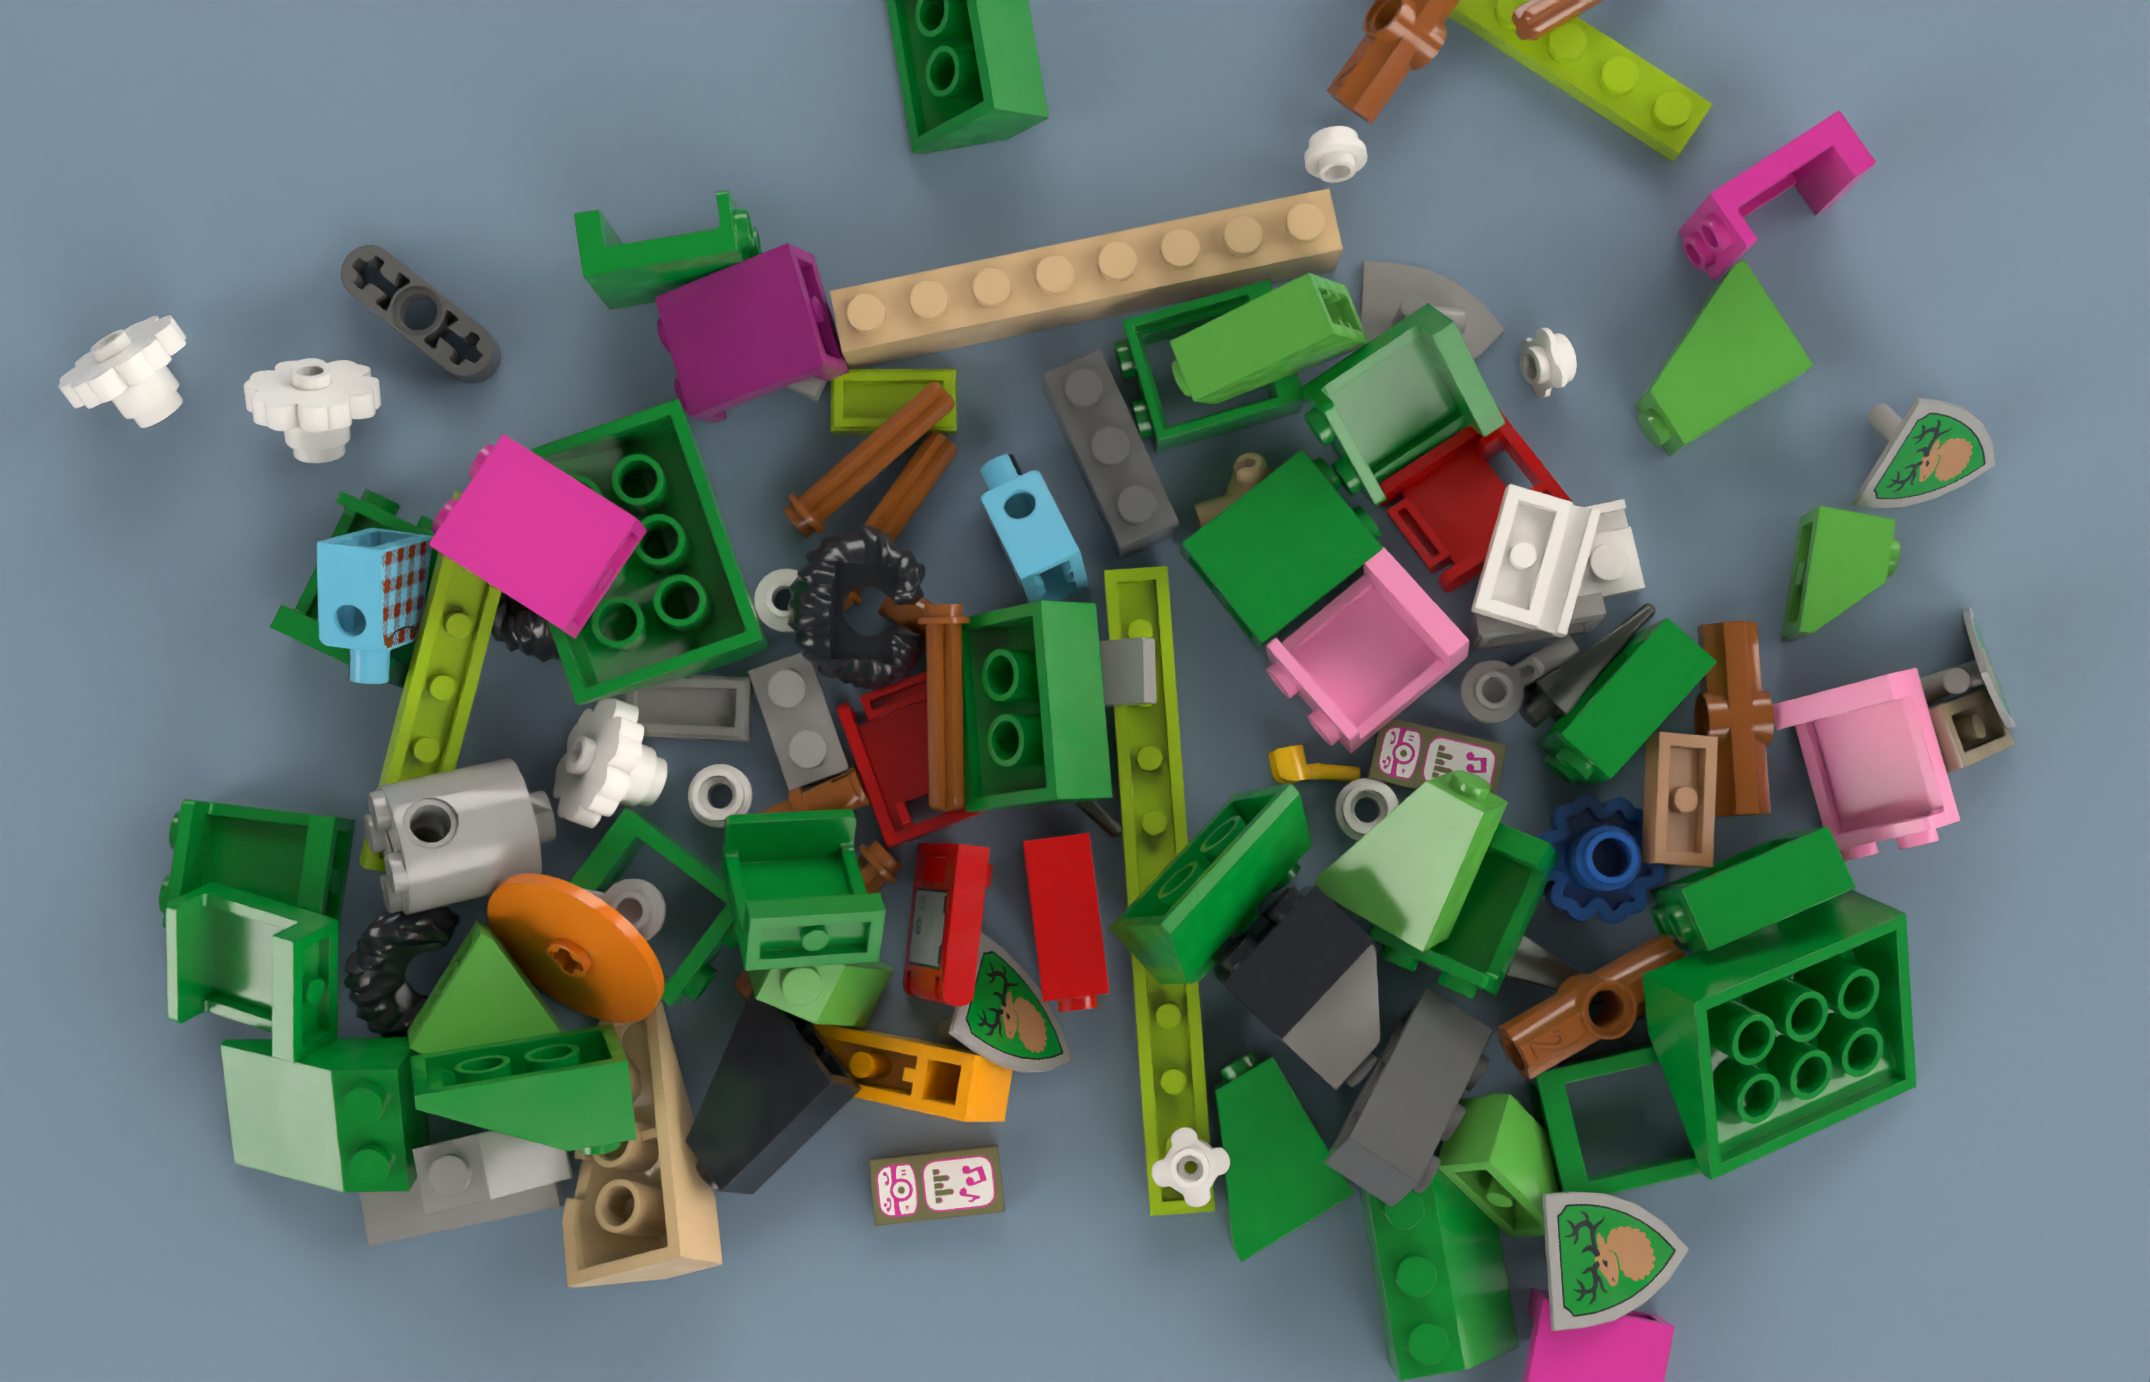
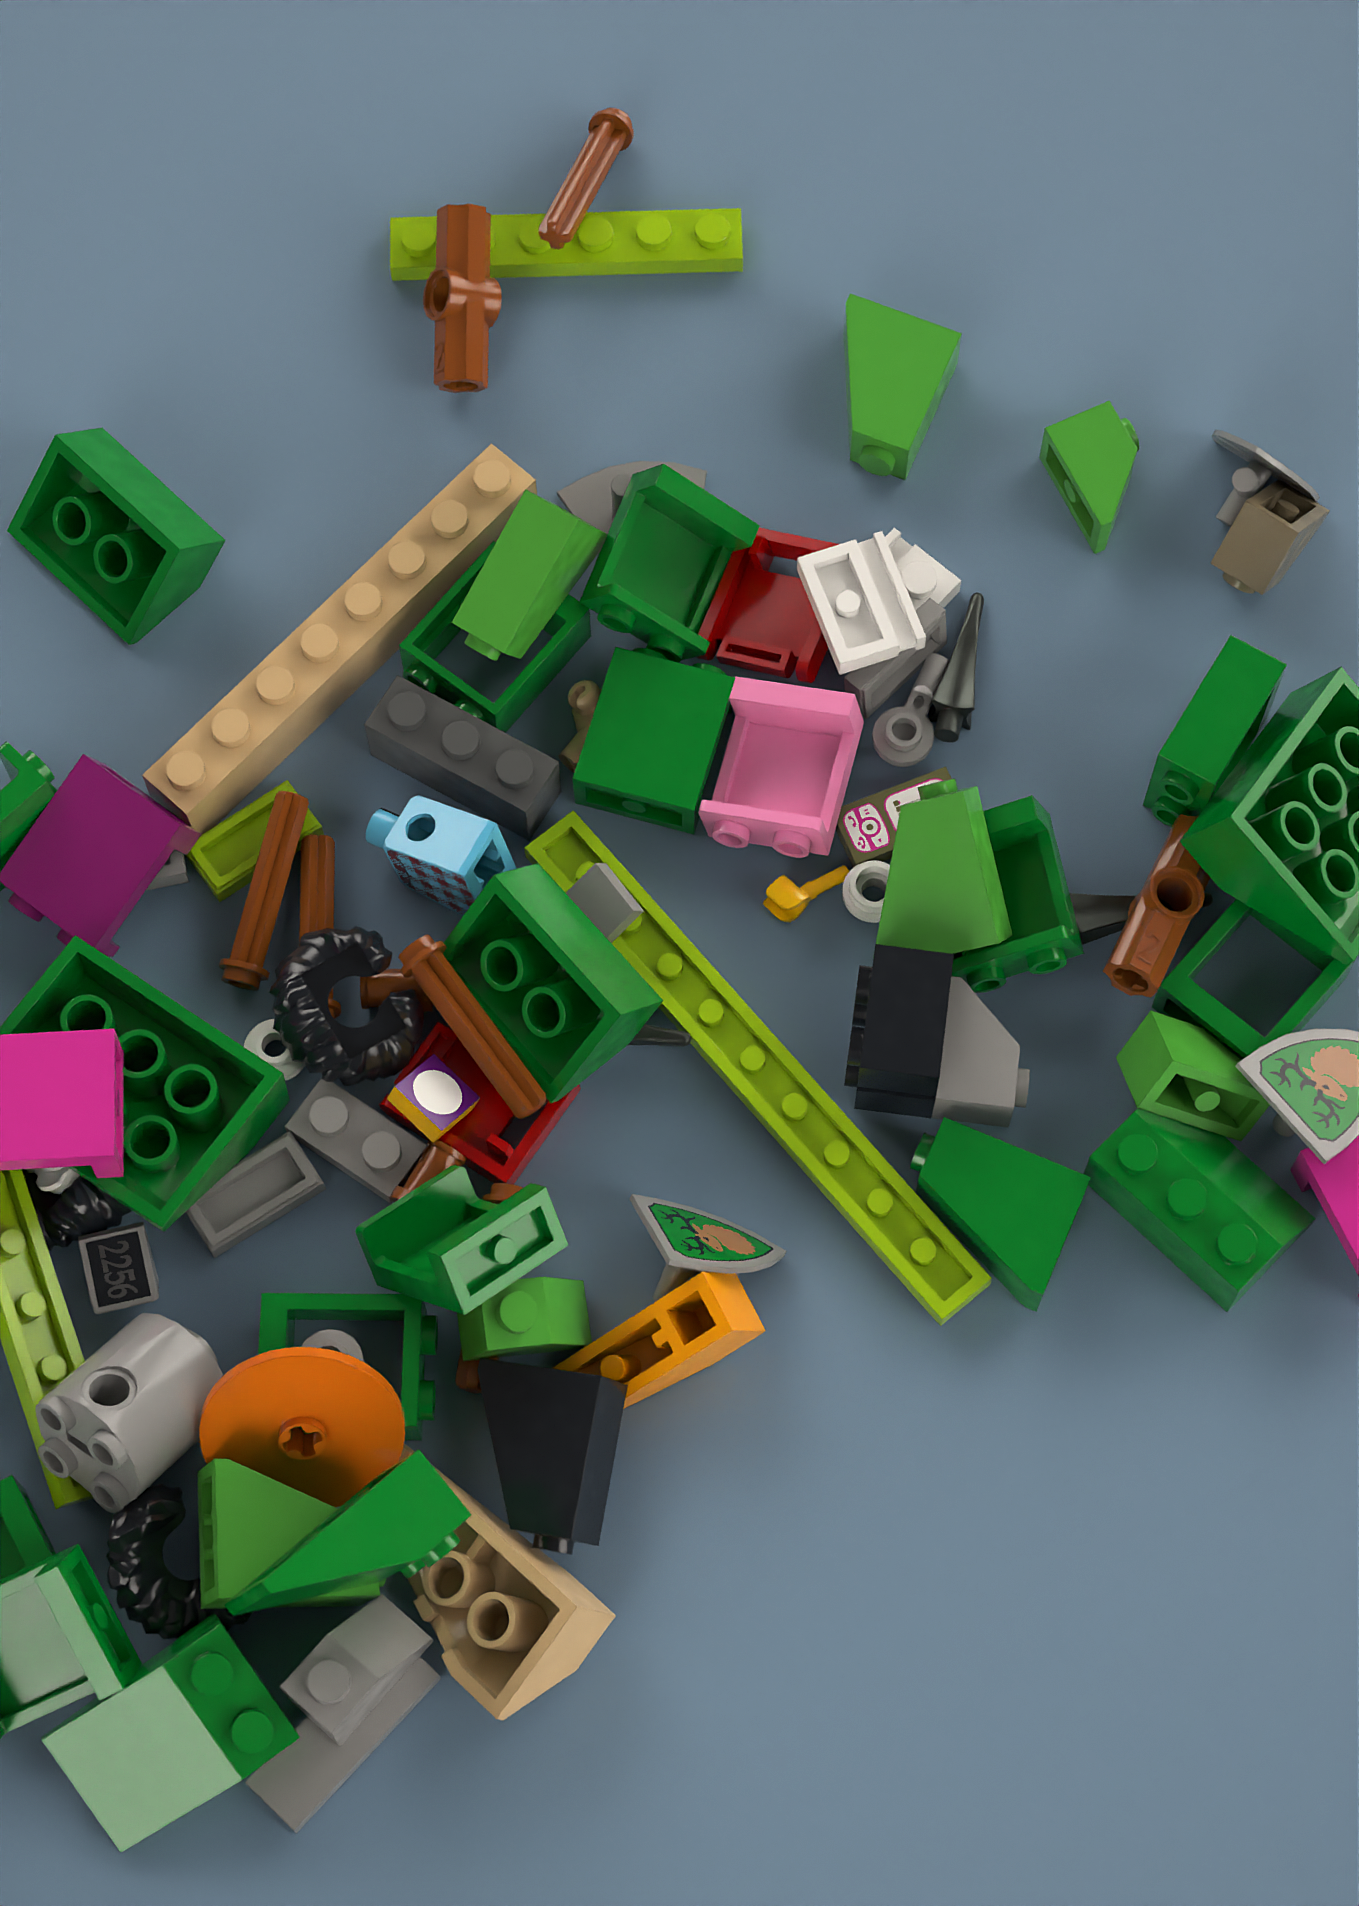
camera: 40 degrees left, 15 degrees down
(535, 701) = (119, 1268): none -> slope
(607, 765) = (217, 1273): white plant -> none
(702, 786) = (321, 1228): white plate -> none
(876, 738) = (433, 1098): none -> tile
(936, 1185) = (748, 1429): tile -> none
(946, 922) = (598, 1196): red container -> none
(1066, 921) = (697, 1125): red window -> none
(1209, 1163) = (934, 1265): white plate -> none
(1216, 884) = (798, 1012): green slope -> none
(1335, 154) = (475, 425): white plate -> none
(1411, 1099) = (1078, 1068): dark grey brick -> none
(1547, 361) = (757, 467): white plate -> none
(1599, 860) = (1088, 799): blue plant -> none
(1625, 704) = (1011, 666): green window -> none
(1679, 800) = (1109, 708): medium nougat panel -> none
(1738, 714) = (1104, 630): dark orange piece -> none
(1818, 163) = (850, 197): dark pink panel -> none
(1873, 762) = (1227, 577): bright pink panel -> none
(1926, 454) = (1097, 342): shield -> none

